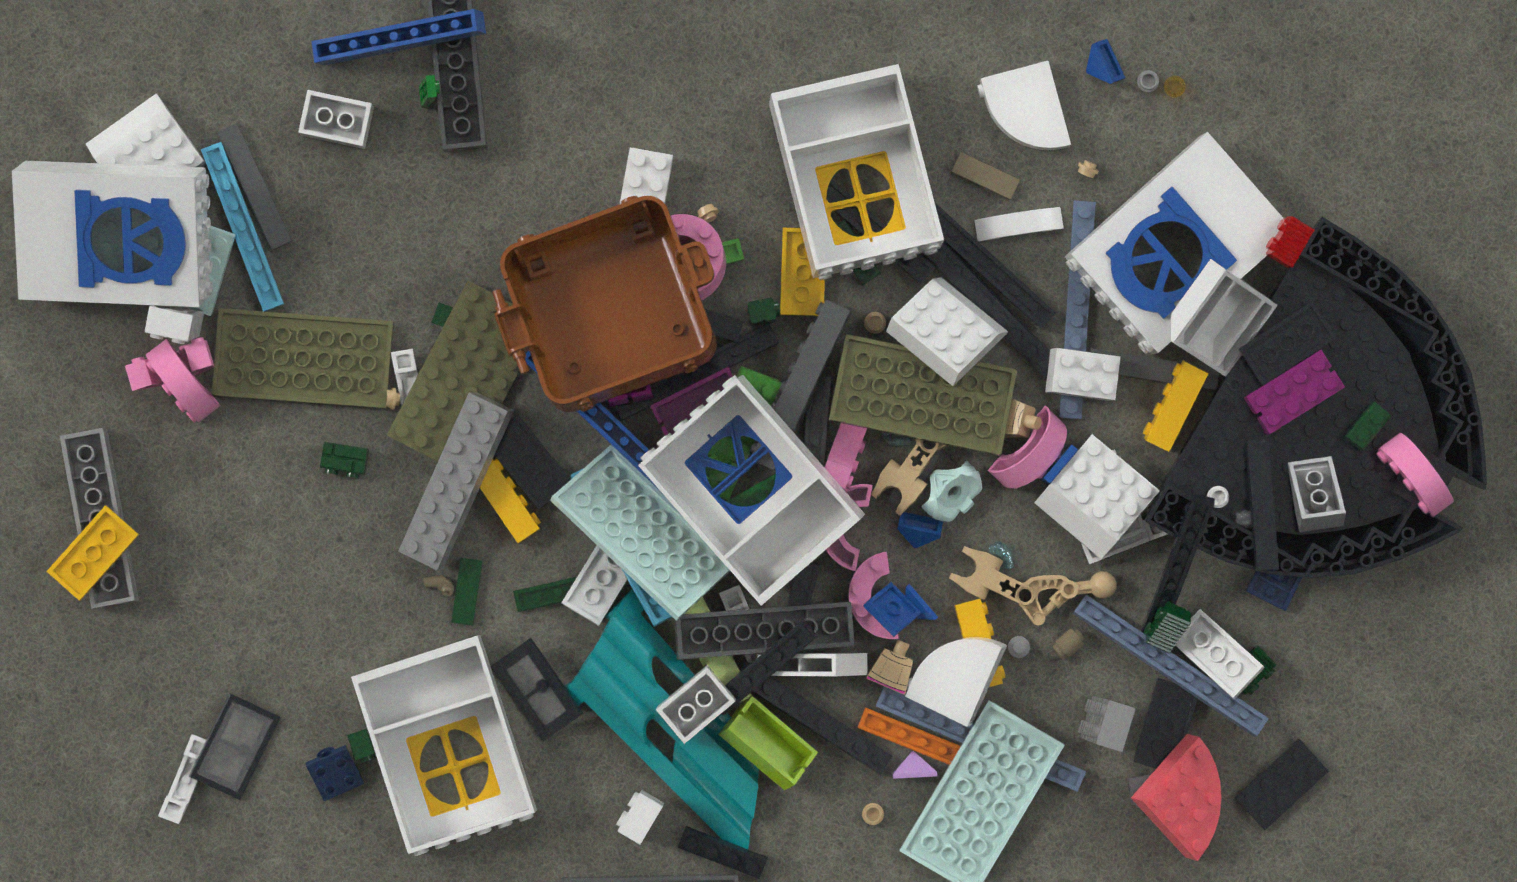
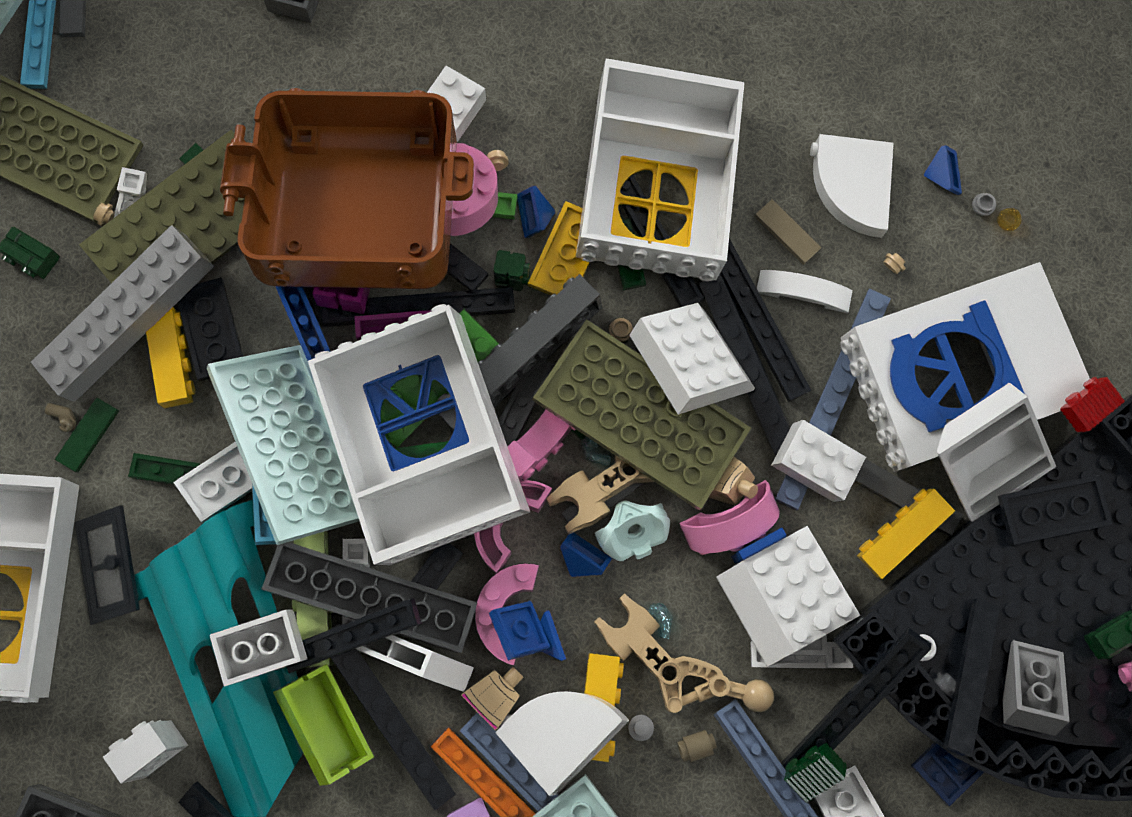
camera: 20 degrees right, 10 degrees down
(759, 246) = (534, 211): none -> blue slope
(1294, 392) = (1047, 565): magenta piece -> none

